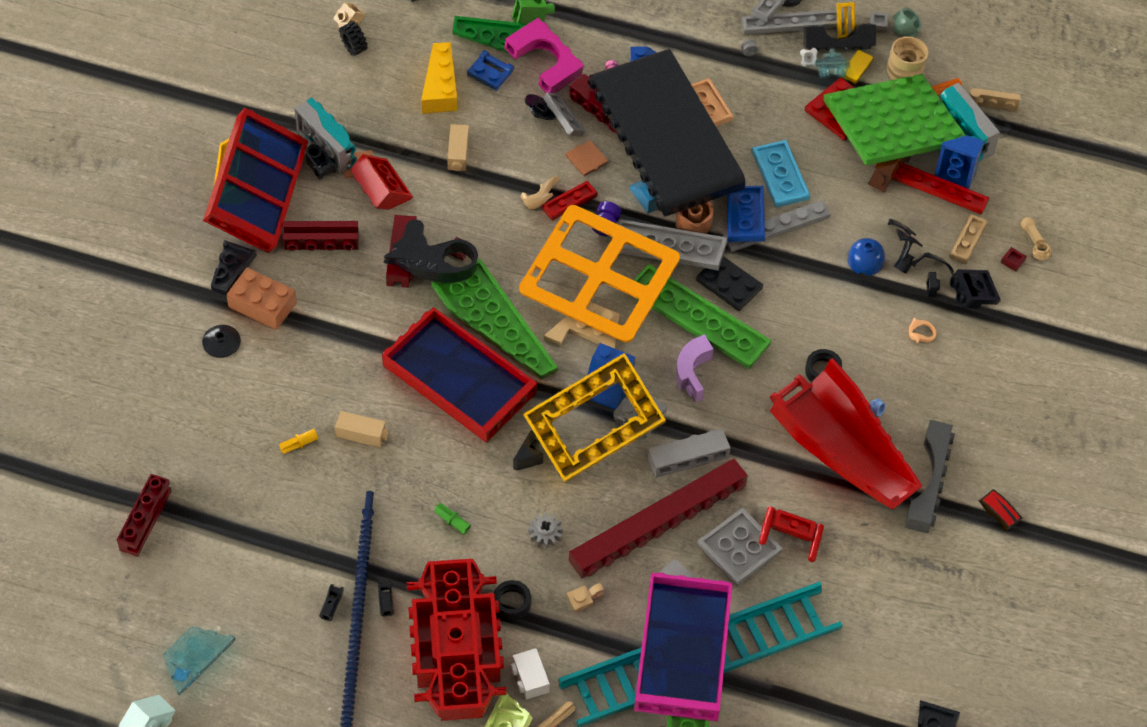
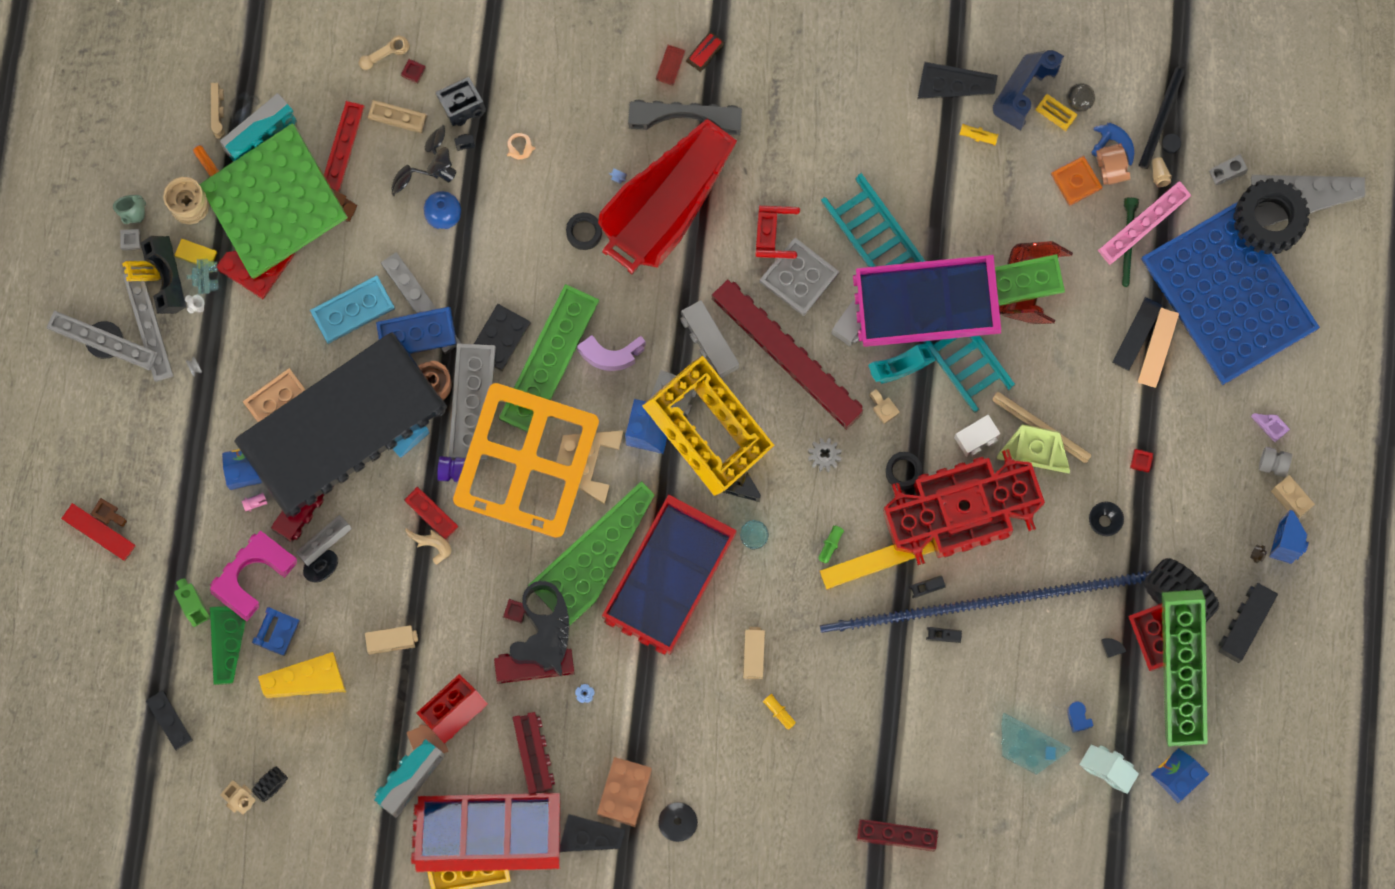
camera: 100 degrees left, 20 degrees up
(208, 707) = (1077, 718): none -> blue leg
(319, 161) = (440, 778): black piece -> none
(364, 291) = (584, 698): none -> light blue plate
(422, 538) = (867, 565): none -> yellow tile
(479, 452) = (754, 534): none -> clear light blue hair
(586, 158) = (371, 507): nougat piece -> none
(622, 614) = (902, 365): none -> teal arch
(959, 160) = (318, 126): blue slope -> none
(990, 476) = (670, 65): none -> clear red tile

